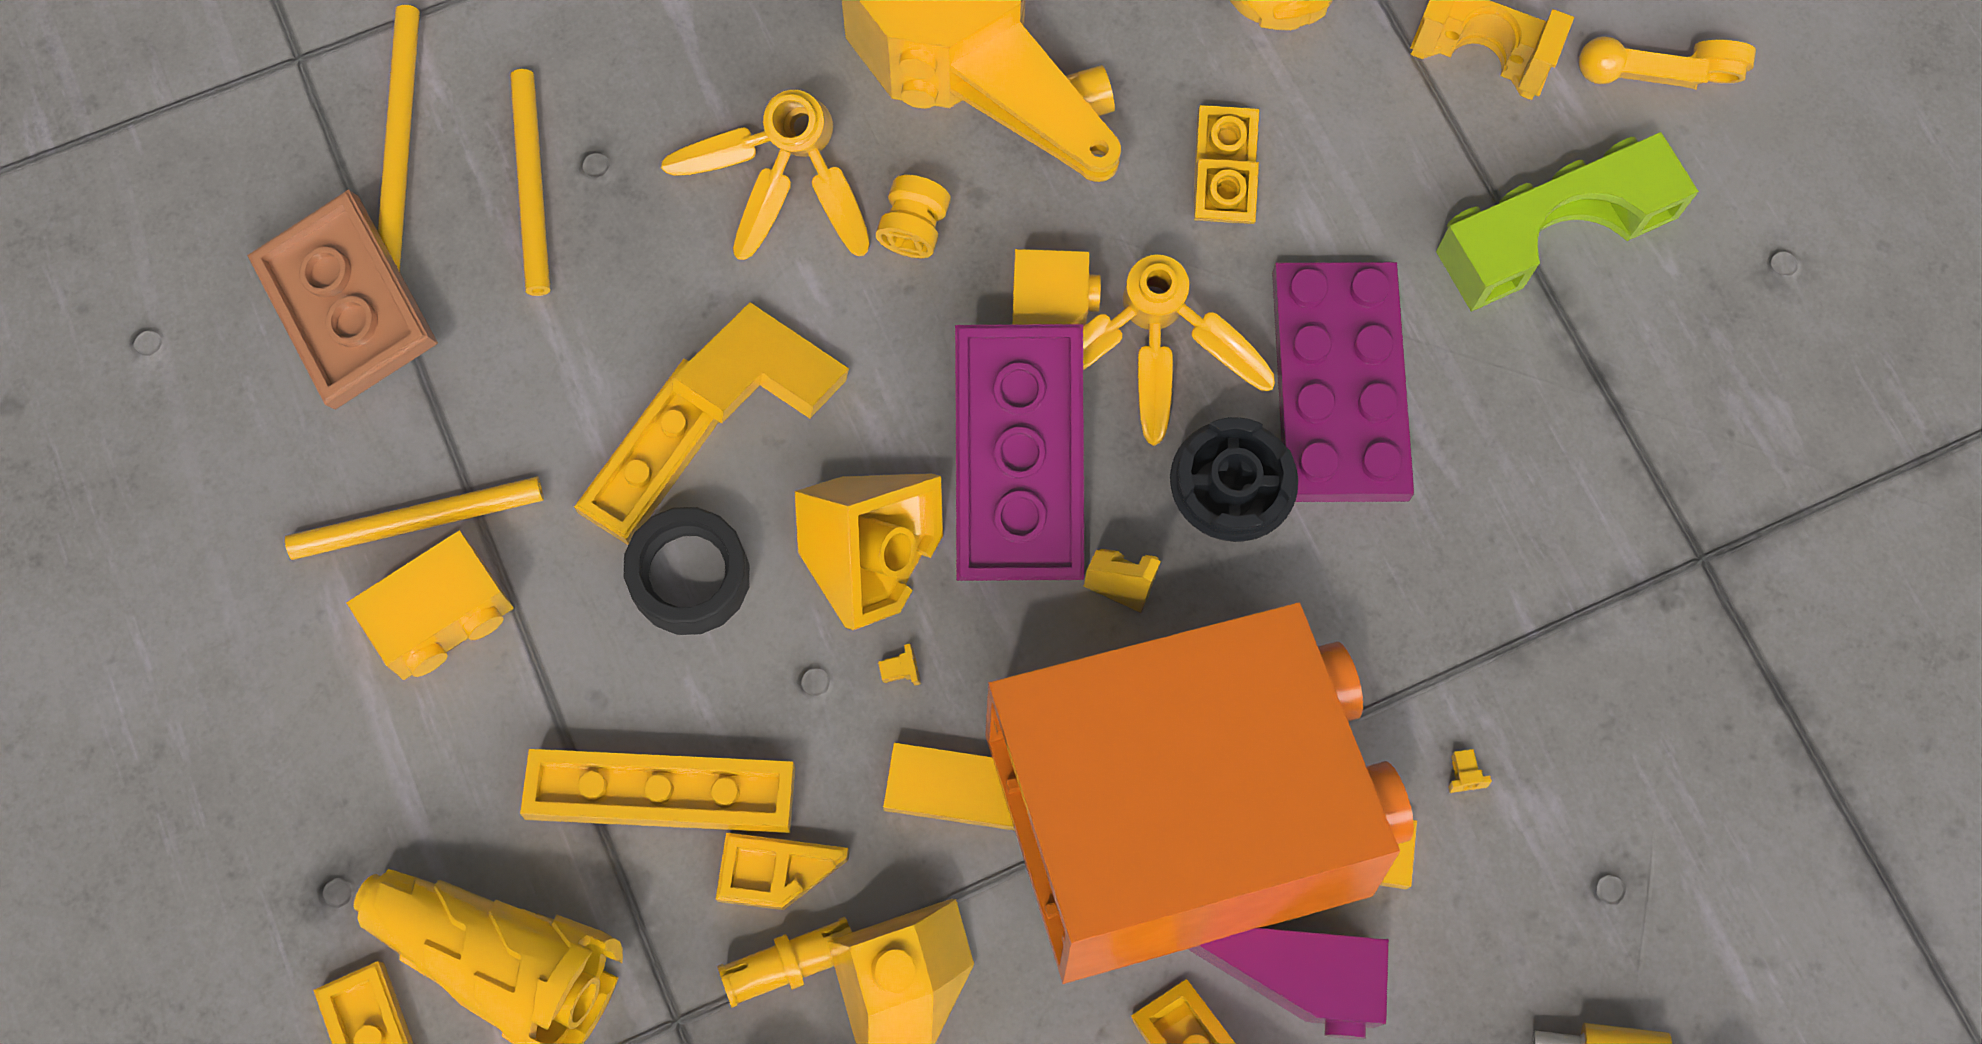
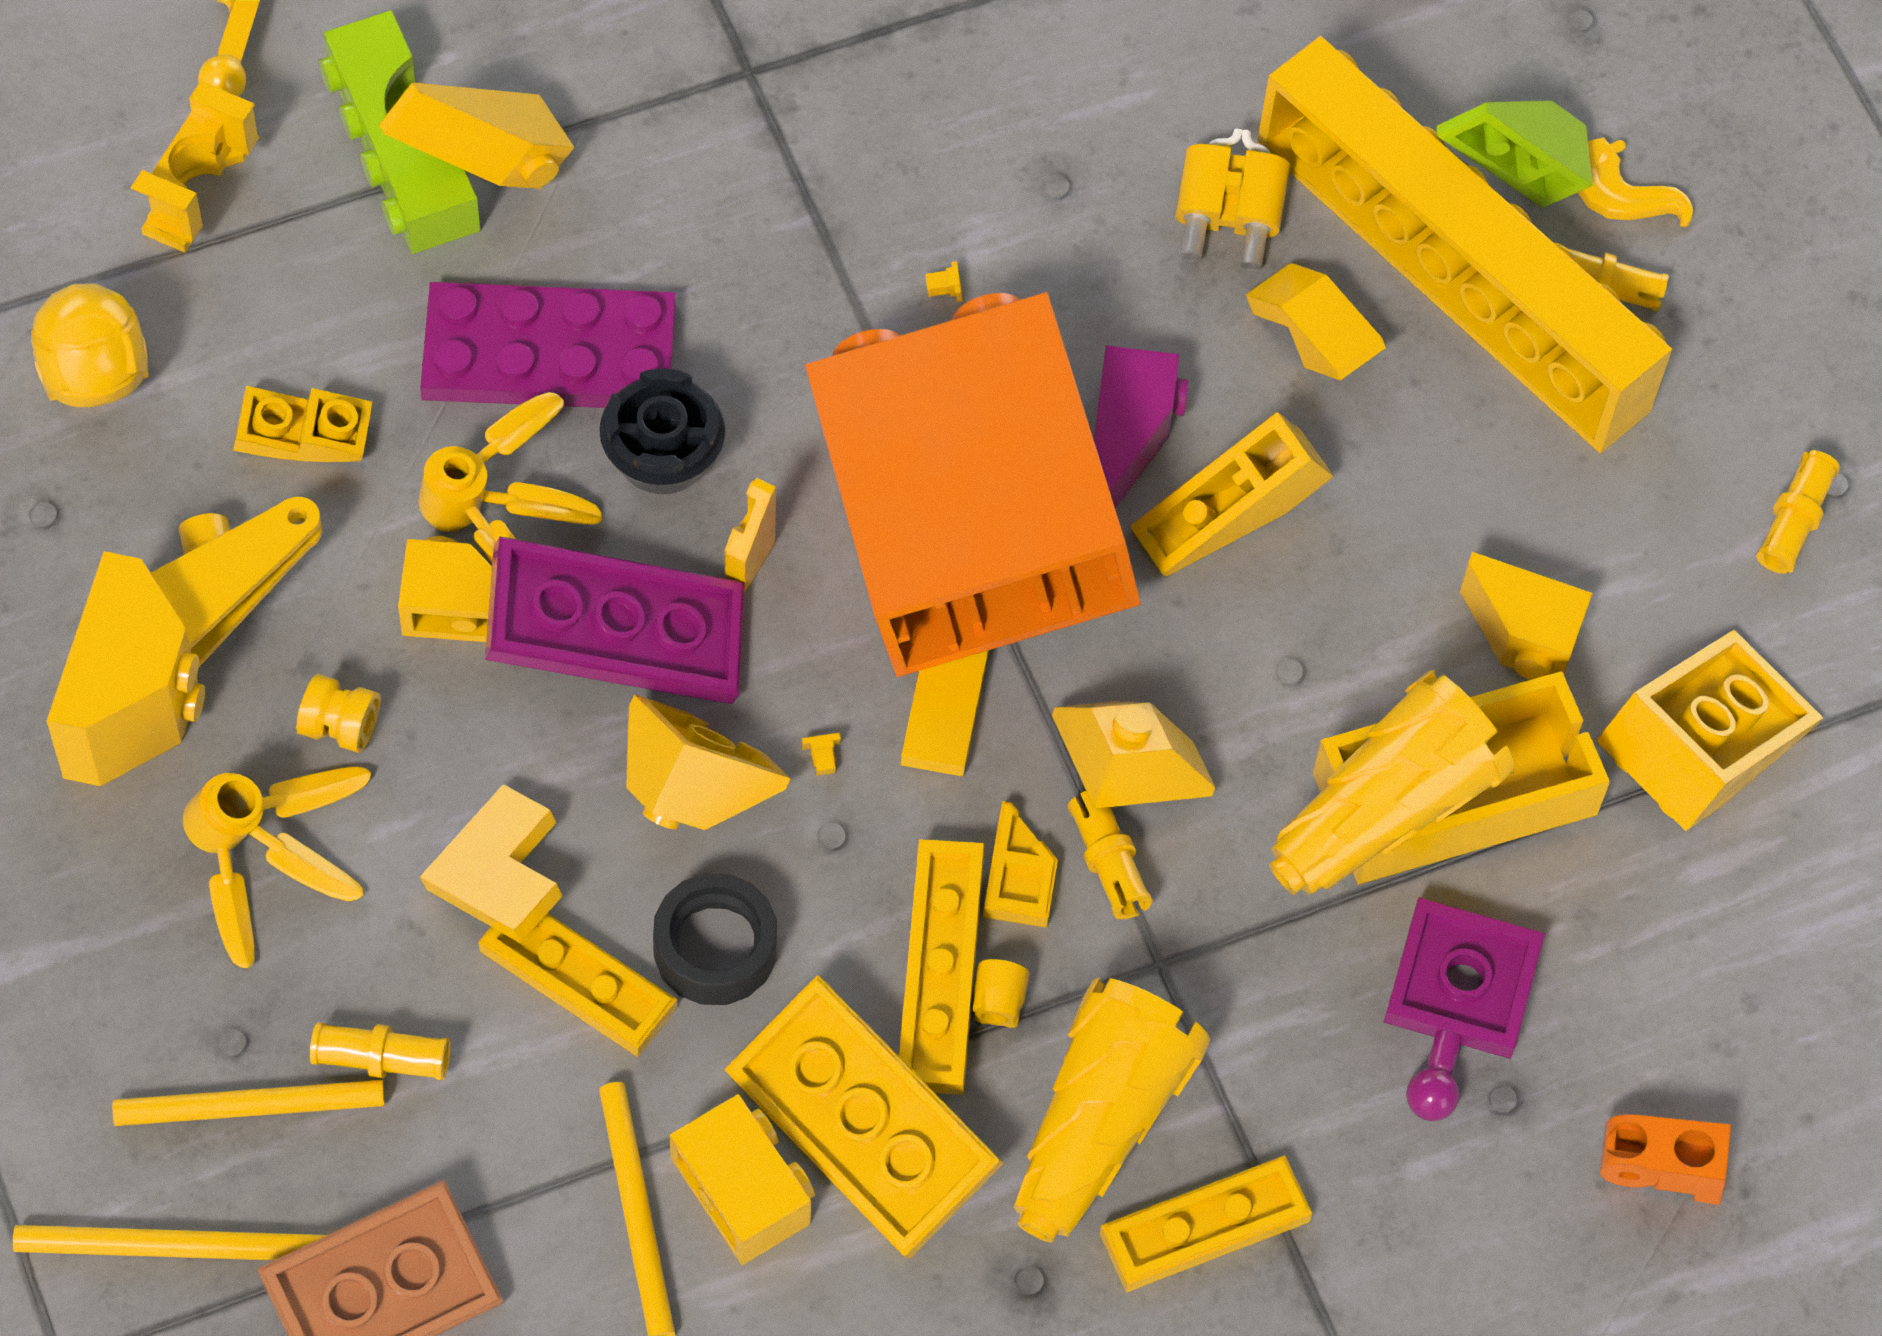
camera: 90 degrees left, 10 degrees down
(492, 721) = (863, 1117): none -> yellow tile
(572, 281) = (380, 1051): none -> yellow pin
(630, 850) = (999, 992): none -> yellow hose
(1560, 284) = (483, 131): none -> yellow slope

